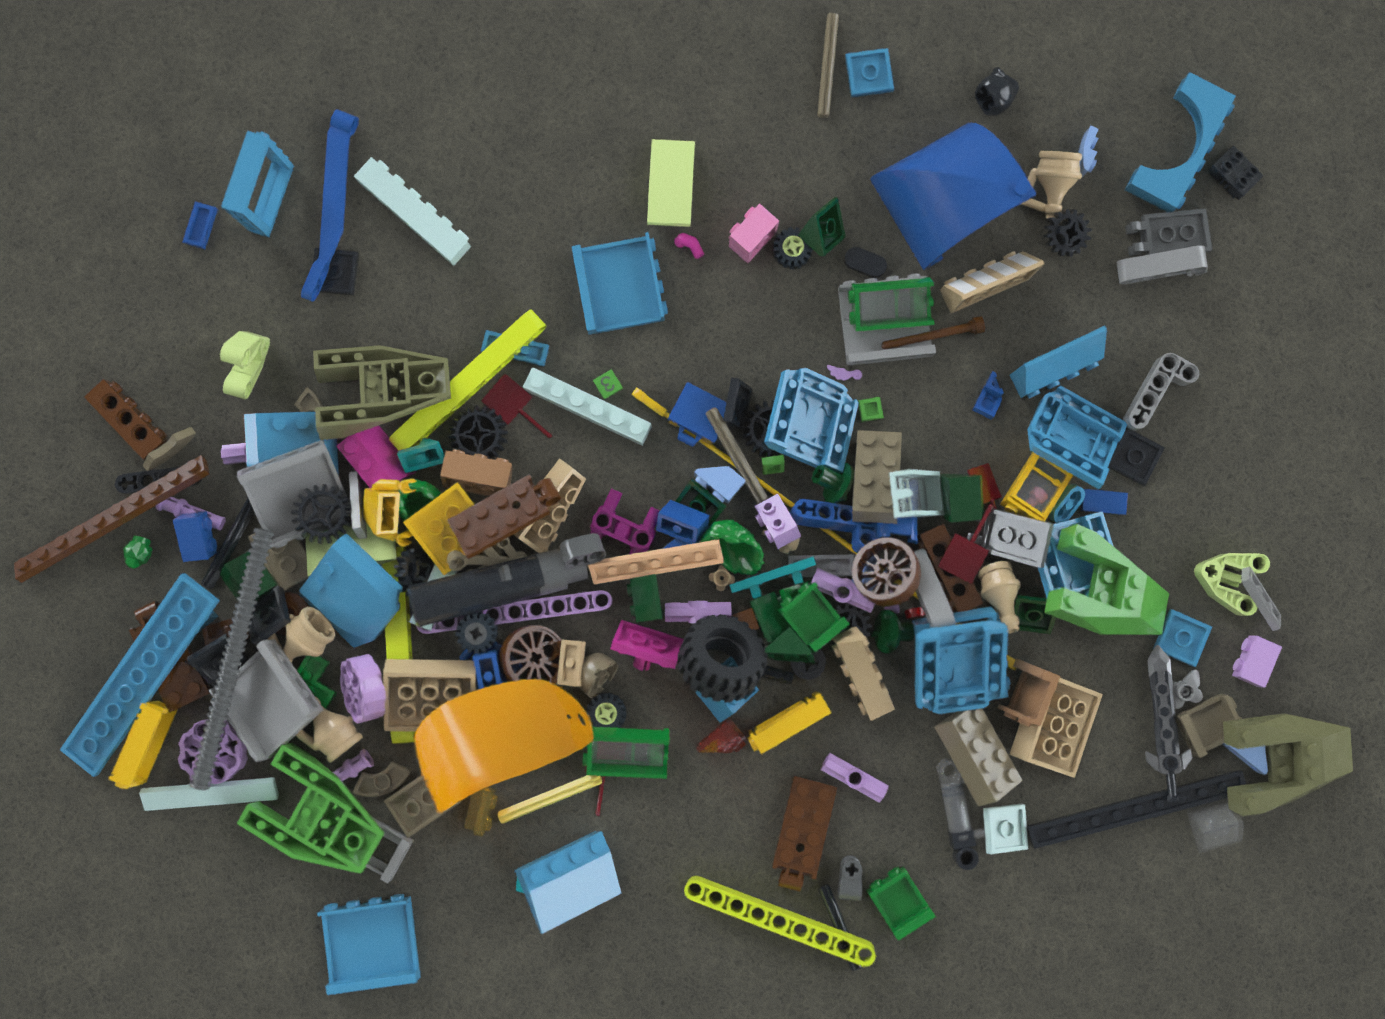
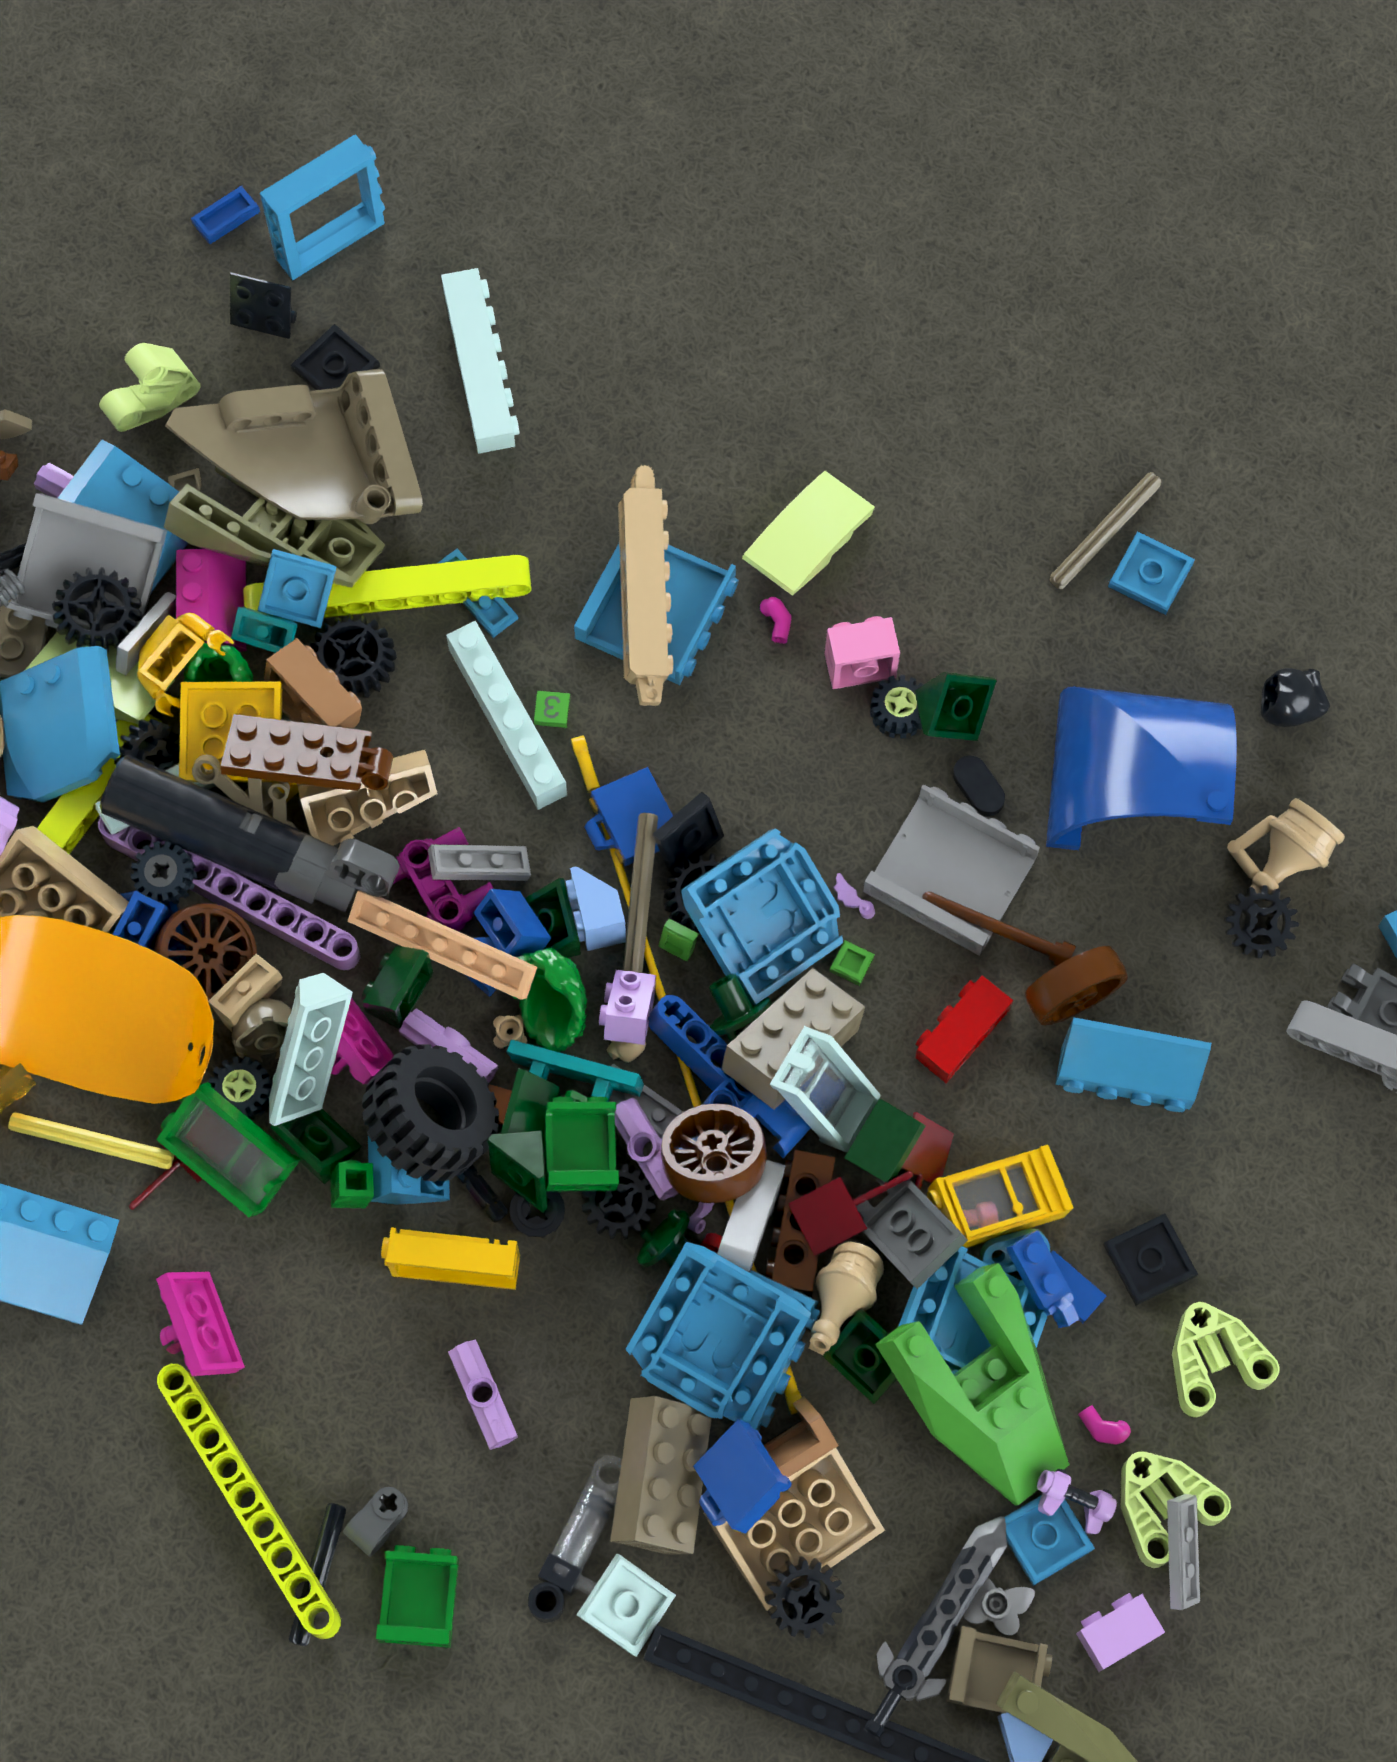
camera: 35 degrees right, 15 degrees down
(266, 267) = (261, 305): none -> black hinge
(334, 197) = (396, 288): blue piece -> none
(364, 333) = (311, 449): none -> dark tan panel
(422, 421) = (296, 588): none -> dark azure tile
(508, 400) = (418, 646): dark red piece -> none
(608, 280) = (644, 588): none -> tan hinge
(631, 672) = (308, 1048): none -> light aqua slope
(637, 500) = (479, 862): none -> light grey tile
(667, 710) = (317, 1142): none -> dark green slope
(684, 852) = (198, 1324): none -> dark pink plate
(705, 721) = (352, 1184): none -> green brick
(723, 739) = (355, 1218): clear red slope -> none
(805, 823) = (377, 1406): reddish brown hinge -> none
(864, 675) = (591, 1268): tan wedge -> none
(891, 304) = (969, 850): door -> none
(955, 404) = (962, 1028): none -> red brick
(989, 280) = (1115, 910): tan slope -> none
(989, 398) = (1013, 1054): blue slope -> none
(1002, 340) = (1076, 985): none -> reddish brown piece
(1026, 731) = (739, 1479): none -> blue piece
(1075, 435) = (1087, 1168): dark azure wedge -> none
(1088, 142) = (1357, 846): light blue slope -> none
(1089, 758) = (817, 1603): none -> black gear
(1094, 509) = (1043, 1278): none -> blue hinge
(1155, 394) = (1233, 1197): light grey beam -> none
(1175, 611) = (1057, 1486): none -> lavender piece
(1180, 561) = (1104, 1431): none -> dark pink arm
(1195, 500) = (1239, 1342): none -> yellowish green connector

